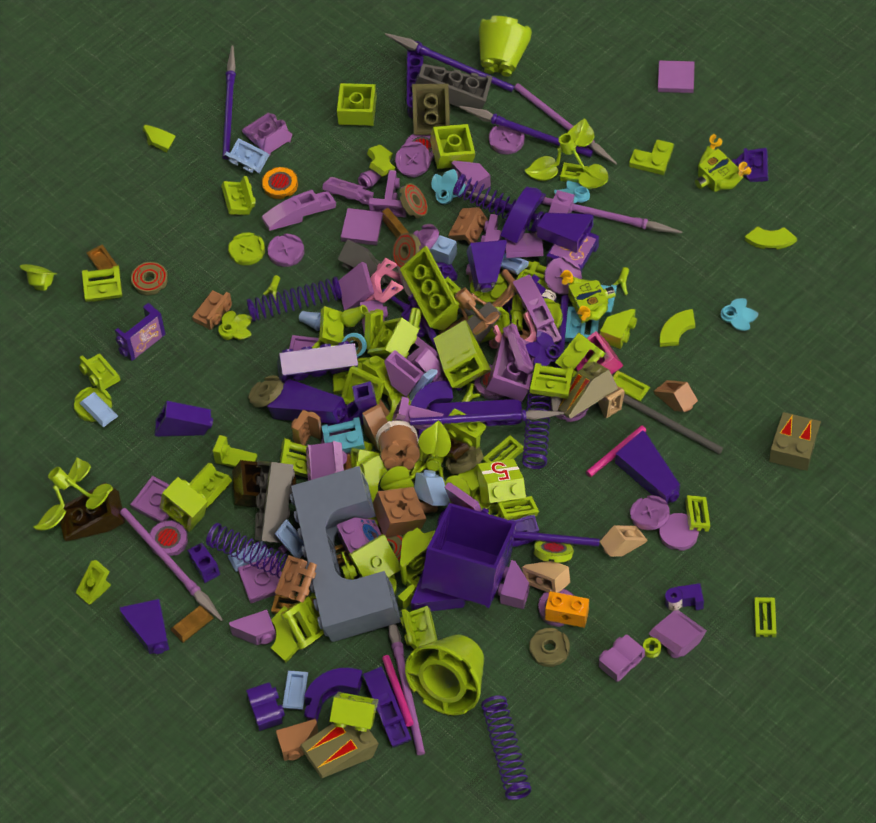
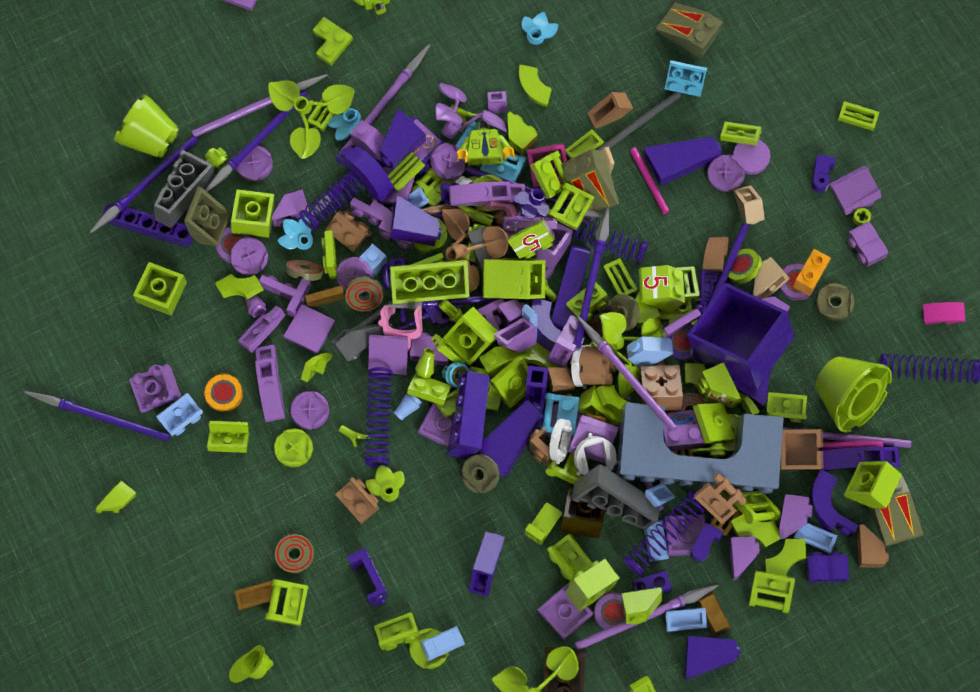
camera: 75 degrees left, 15 degrees up
(177, 550) = (640, 604): none -> lime slope
(178, 598) = (686, 619): none -> light blue tile
(231, 662) = (773, 585): none -> lime plate
(255, 589) = (701, 547): none -> dark purple leg
(256, 665) = (792, 552): none -> lime tile
(296, 436) = (559, 454): none -> white piece
(301, 456) = (580, 458): none -> white piece
(306, 659) = (794, 514): none -> medium lavender slope
(326, 237) = (314, 365): none -> lime slope
(374, 644) = (801, 449): none -> medium nougat piece
(407, 442) = (608, 352): none -> medium lavender piece
(436, 213) = (329, 257): none -> lime plate
(496, 346) = (531, 239): none -> lime slope
(497, 105) = (216, 158): none -> lime gear
(537, 244) = (403, 169): none -> lime tile
(564, 523) = (715, 253): none -> medium nougat slope
(574, 749) = (944, 312): none -> dark pink slope
(601, 250) = (454, 121): none -> medium lavender plant
(646, 303) = (497, 102): none -> medium lavender slope
(735, 445) = (685, 78): none -> medium azure slope

